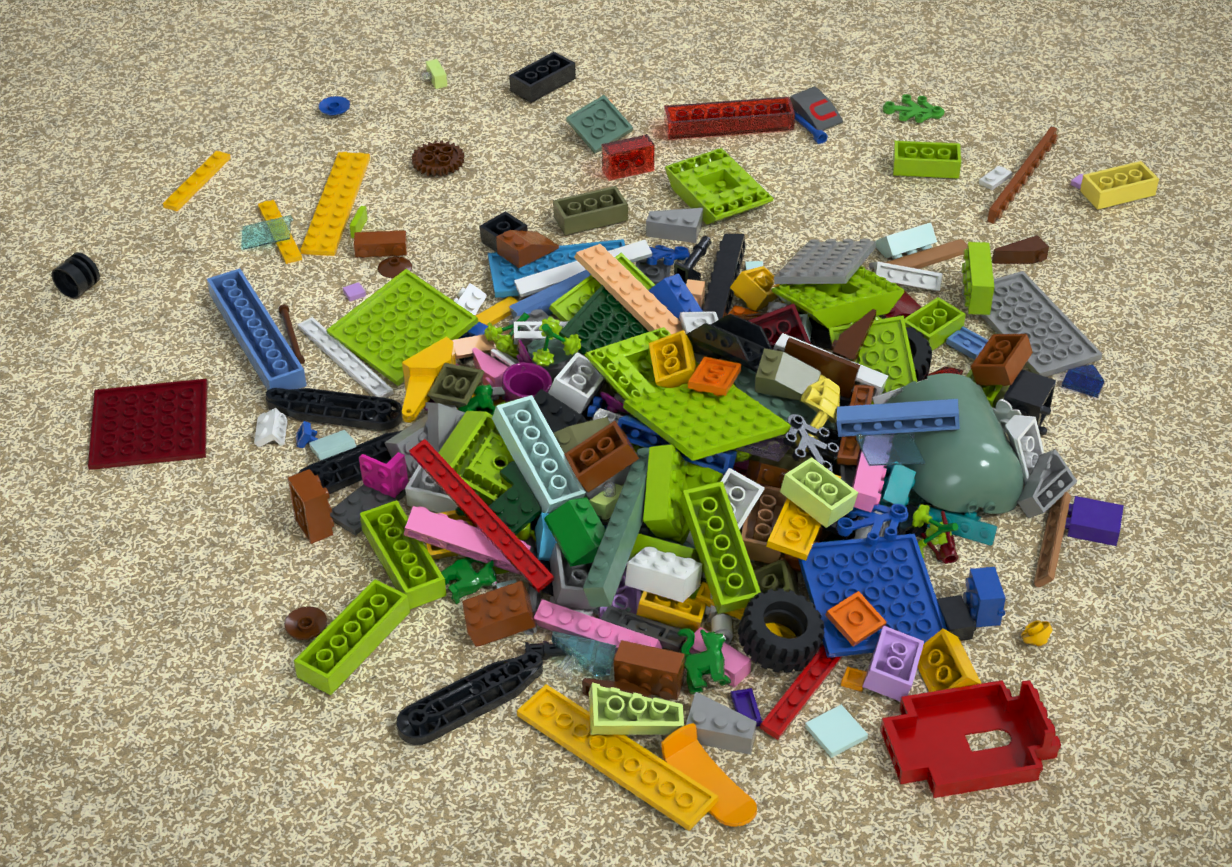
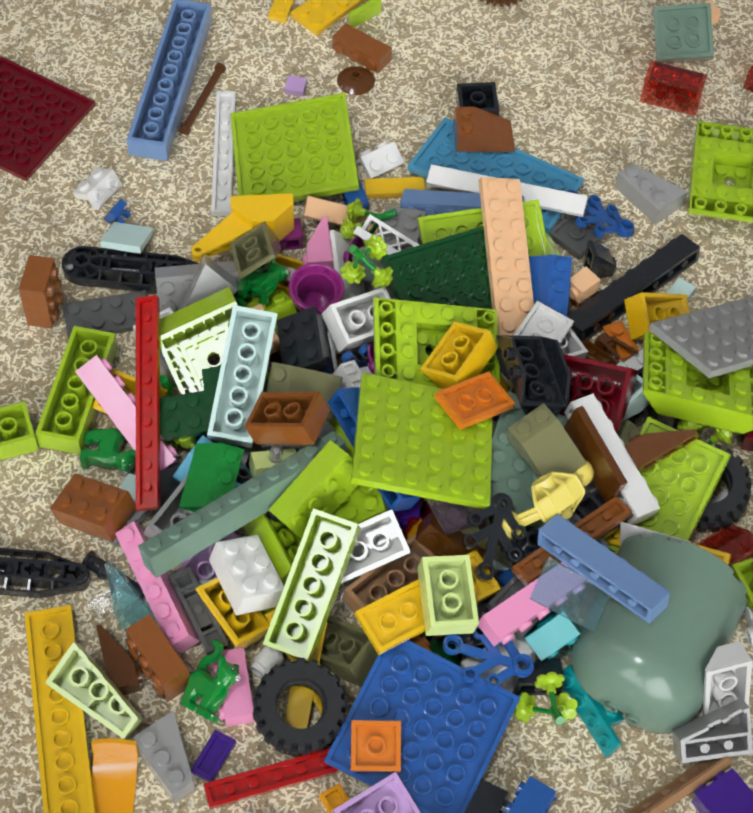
camera: 35 degrees right, 15 degrees up
(335, 407) = (189, 223): black beam -> none
(383, 477) = (125, 302): dark pink bracket -> none
(590, 210) = (581, 127): olive brick -> none
(698, 251) = (646, 236): black pin -> none
(947, 550) = (551, 734): dark red plant -> none

